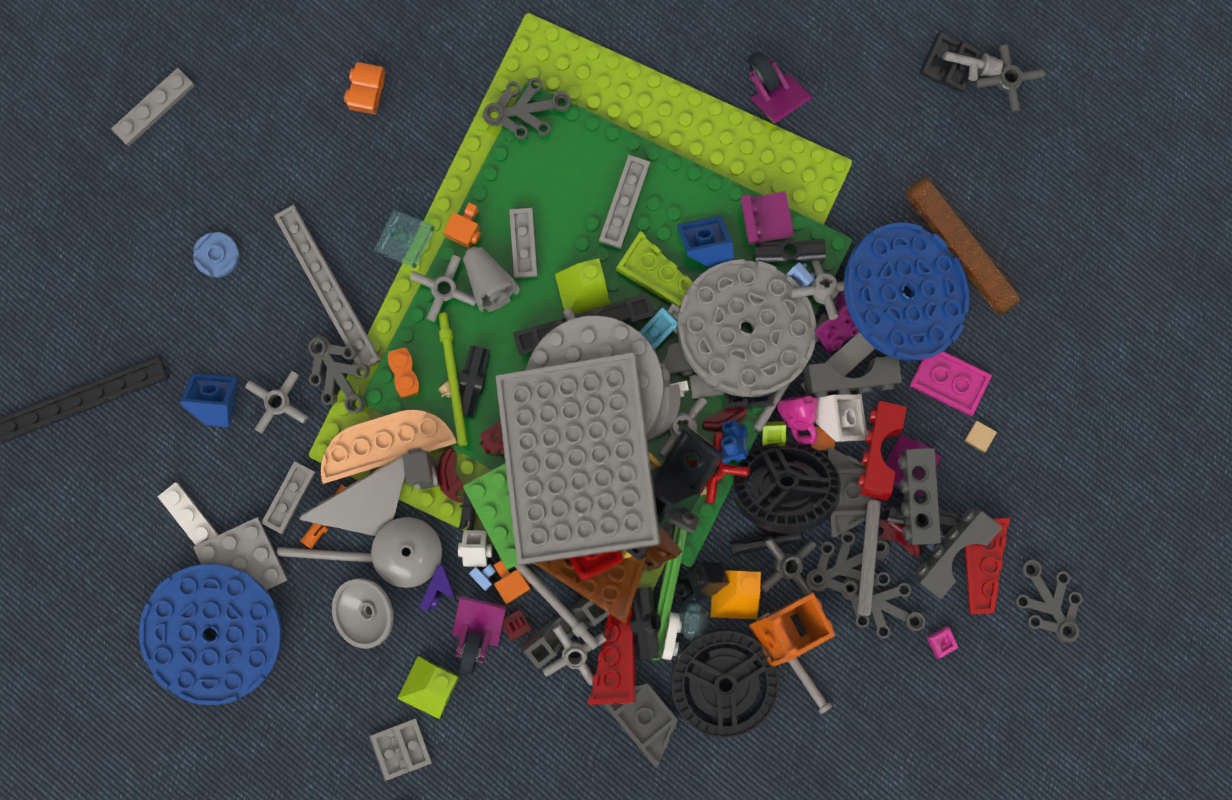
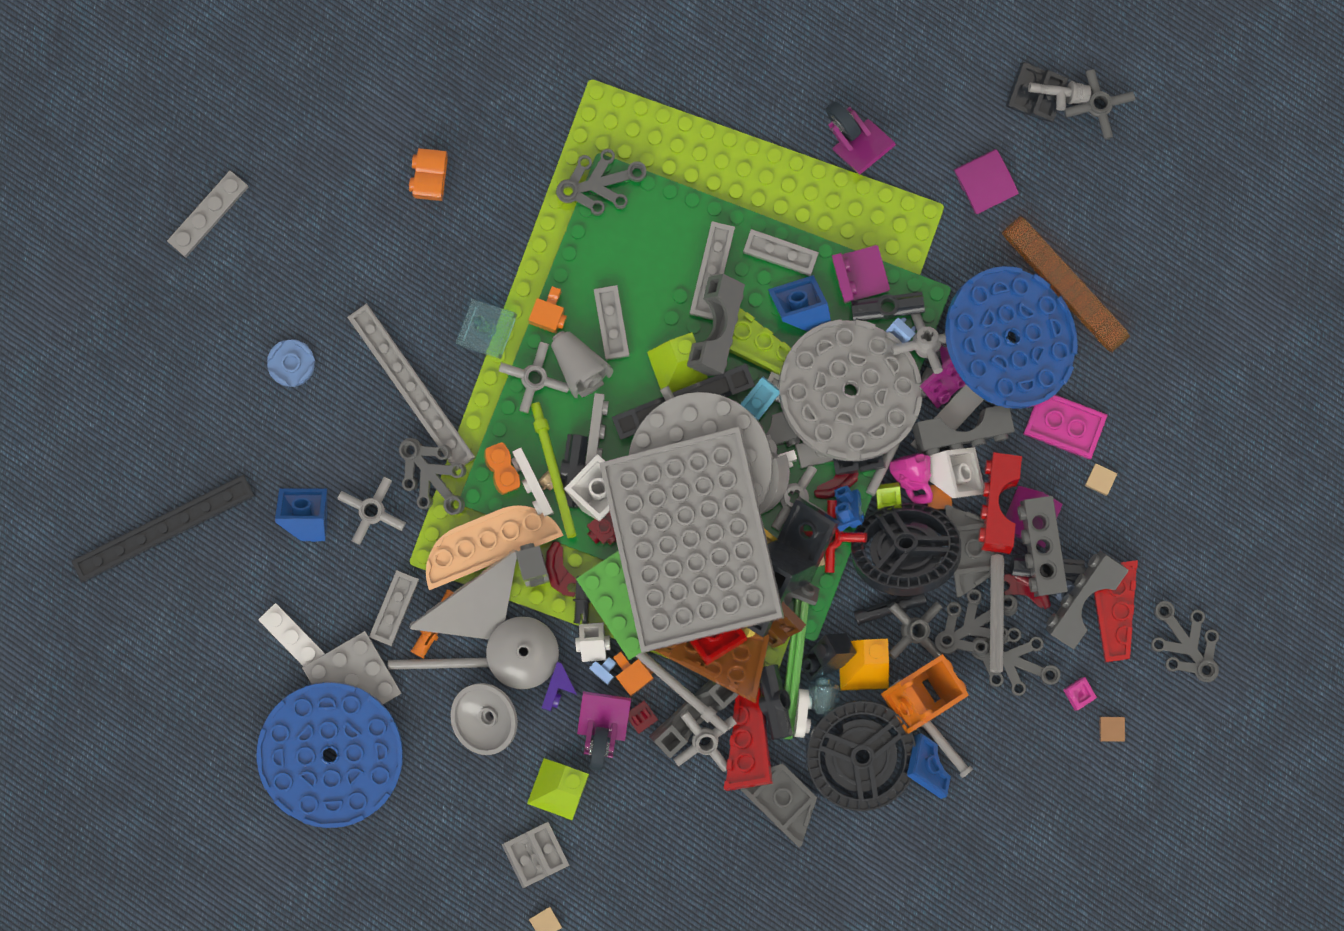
camera: 10 degrees left, 0 degrees up
(430, 389) = (530, 483): none -> white plate
(483, 401) = (589, 491): none -> white slope
(498, 345) = (597, 430): none -> light grey plate
(633, 228) = (724, 299): none -> dark grey arch
(692, 190) = (780, 252): none -> light grey plate
(787, 701) = (926, 767): none -> blue tile
(894, 142) = (986, 181): none -> magenta slope
(970, 679) = (1112, 729): none -> medium nougat tile

